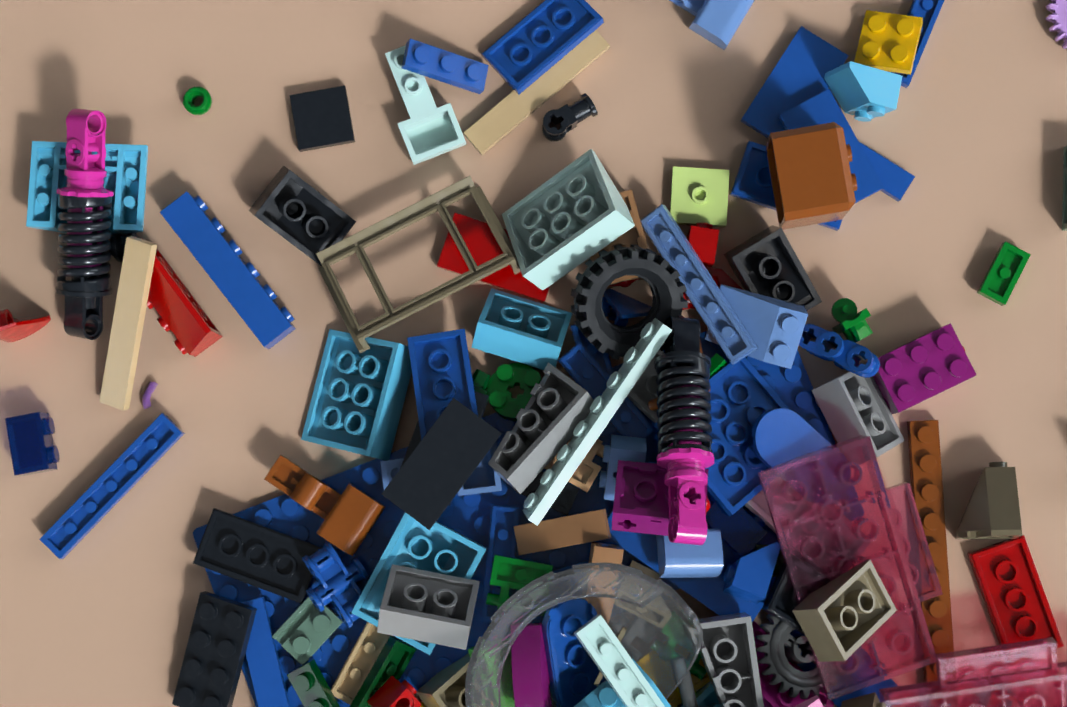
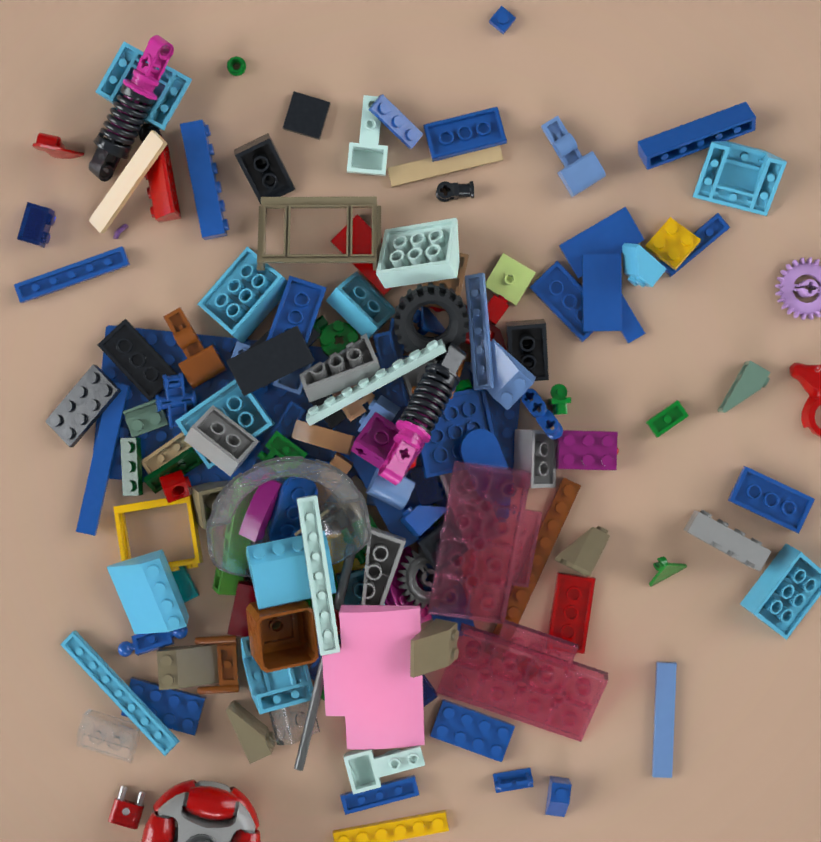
camera: 25 degrees right, 5 degrees up
(811, 175) = (579, 301): dark orange plate -> none
(845, 612) = (462, 567): dark tan slope -> none

